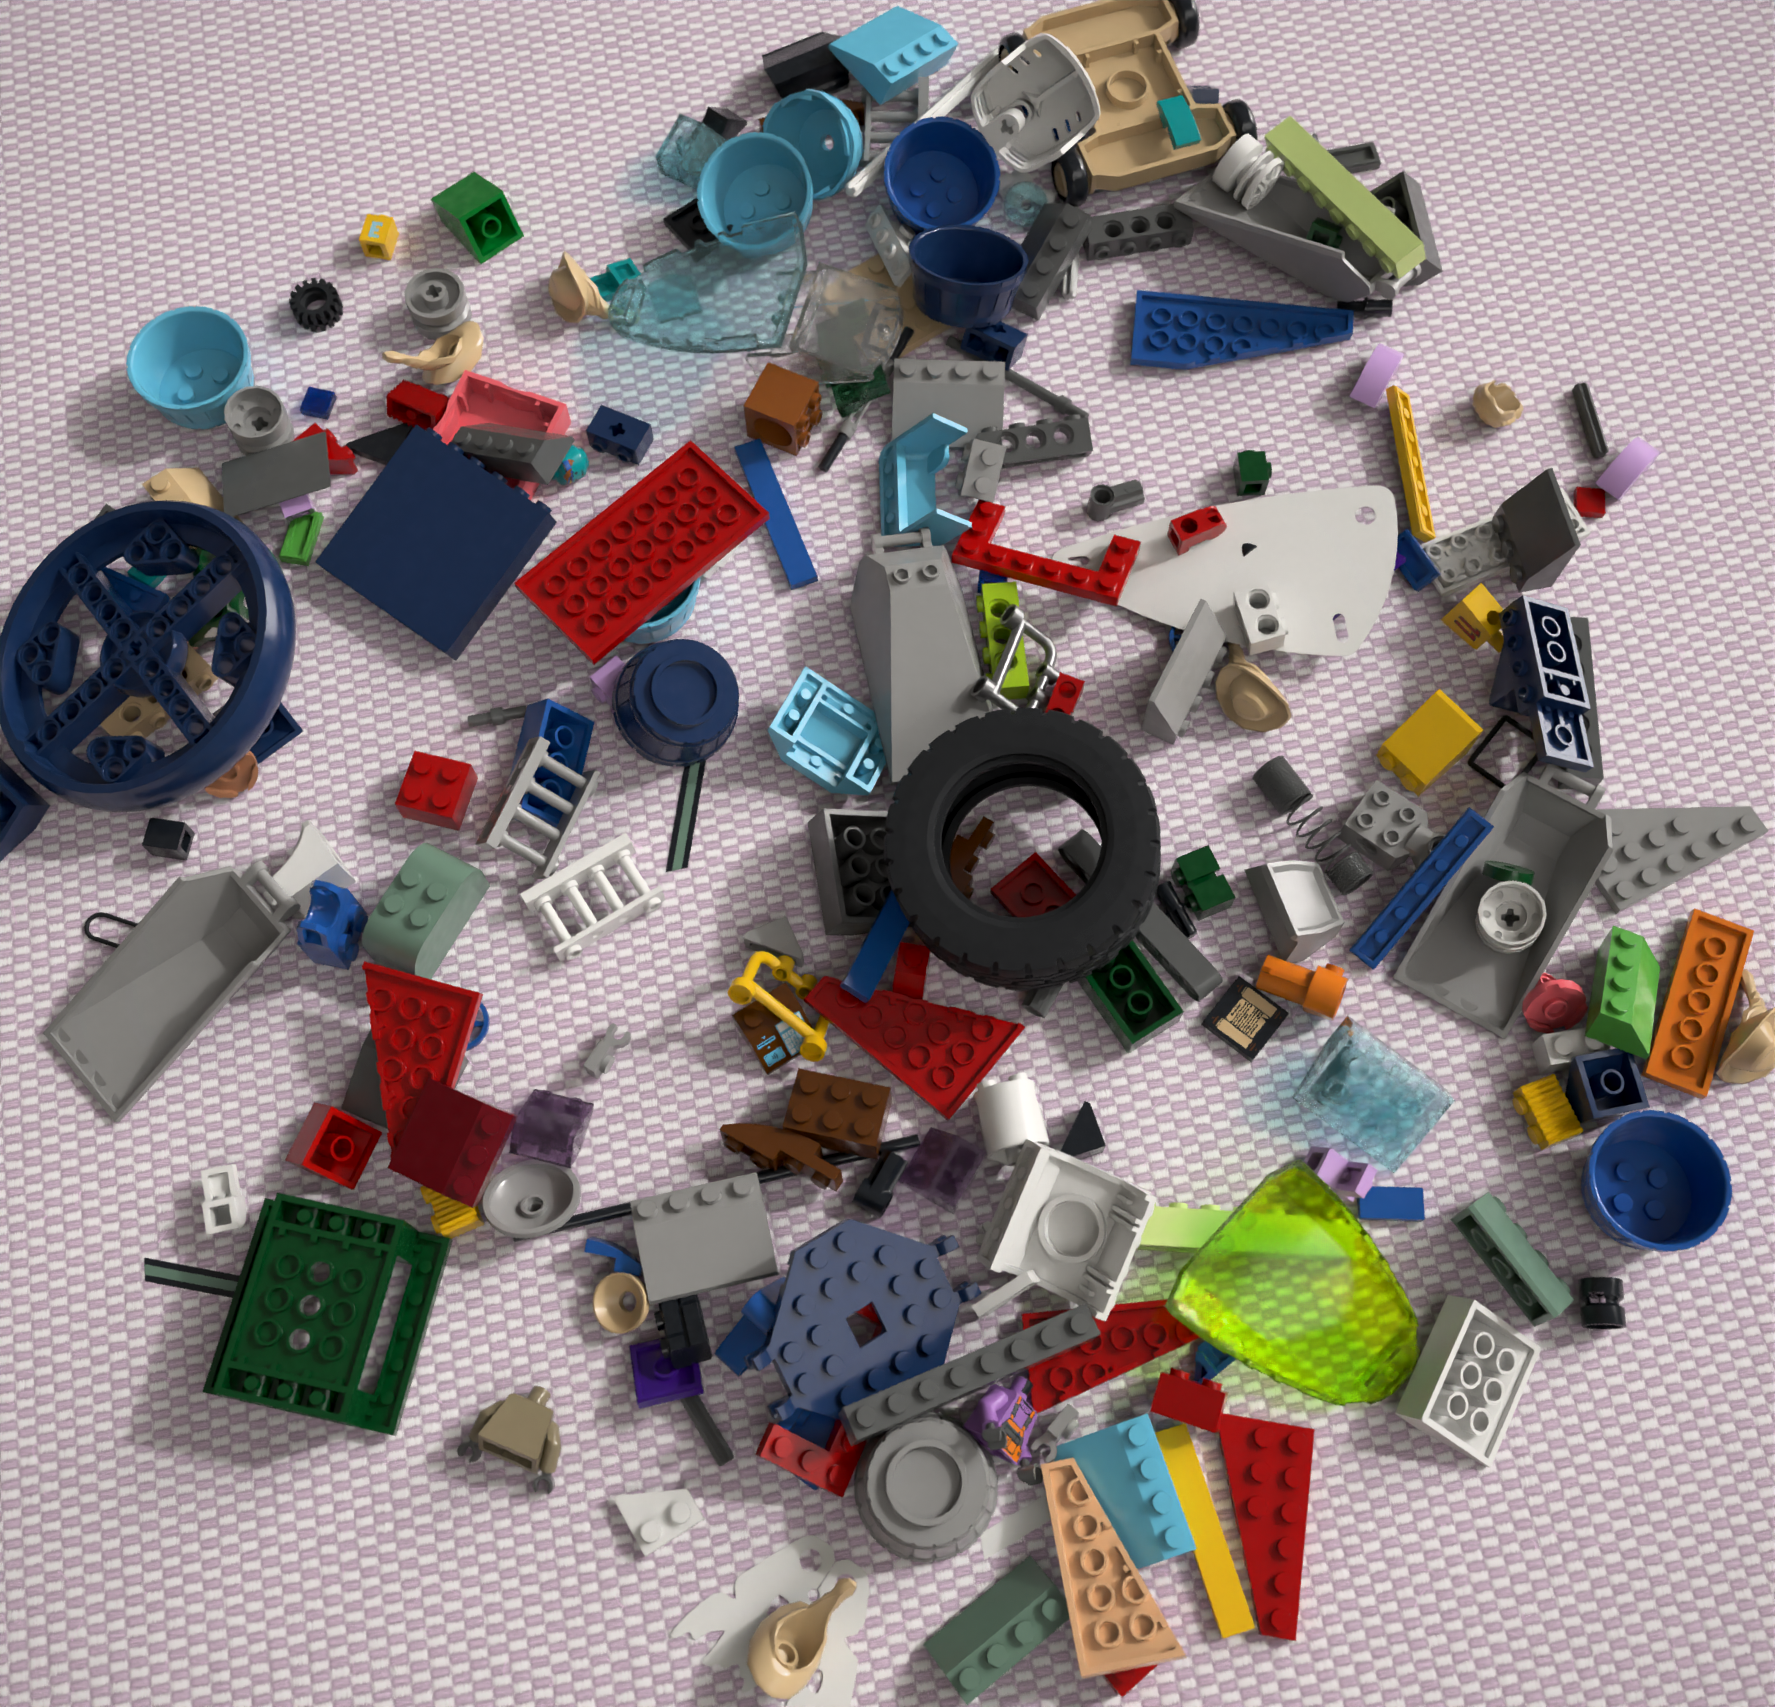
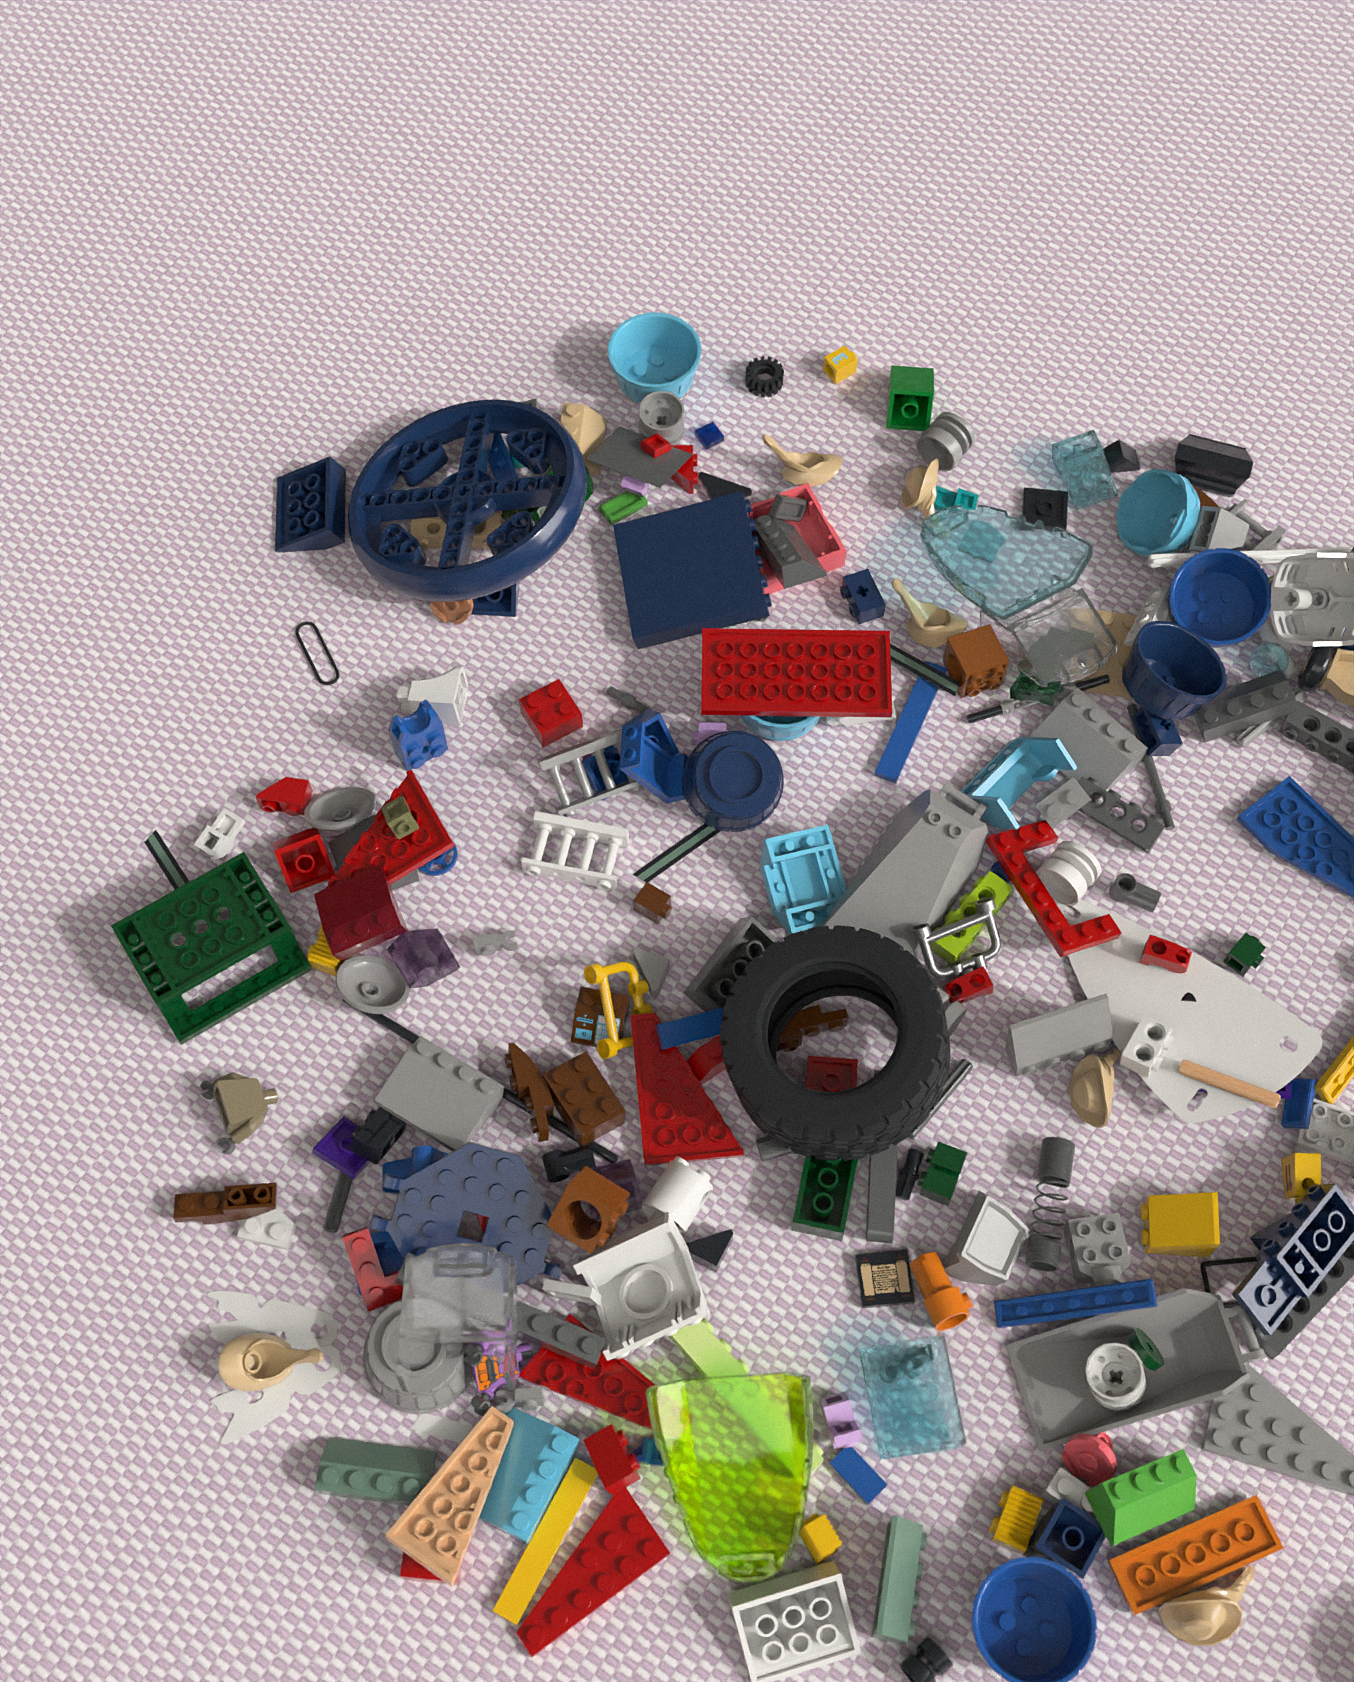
camera: 45 degrees right, 5 degrees down
(168, 838) = (385, 614): black panel -> none
(169, 981) = (310, 691): light grey windscreen -> none
(251, 1101) = (286, 796): none -> red slope
(281, 451) = (655, 445): none -> red tile
(322, 1064) = (340, 809): none -> light grey dish
(402, 1016) = (399, 817): none -> olive bracket
(416, 405) = (760, 480): red brick -> none
(423, 911) = (474, 773): sand green brick -> none
(437, 302) = (833, 430): light grey wheel -> none
(471, 407) = (788, 508): none -> dark grey tile
(552, 228) = (946, 440): none -> light grey wheel
(572, 467) = (815, 590): teal head -> none
(590, 754) = (651, 764): none -> blue panel
(606, 1538) = (224, 1206): none -> reddish brown slope
(609, 1304) = (355, 1084): tan piece -> none
(625, 1261) = (385, 1051): blue slope -> none
(705, 409) = (928, 622): none -> tan hat
(715, 880) = (652, 903): none -> reddish brown brick
(752, 181) = (1093, 507): medium azure piece -> none
(752, 455) = (924, 670): none -> sticker
(879, 119) = (1218, 530): none -> light grey slope
(894, 52) = (1278, 496): medium azure slope -> none
(937, 1395) = (458, 1298): none -> clear windscreen
(963, 1230) = (572, 1221): none -> dark orange brick
(1049, 526) = (1069, 872): none -> white wheel
(1354, 590) = (1229, 1083): none -> light nougat axle
(1427, 1287) = (819, 1537): none -> yellow brick

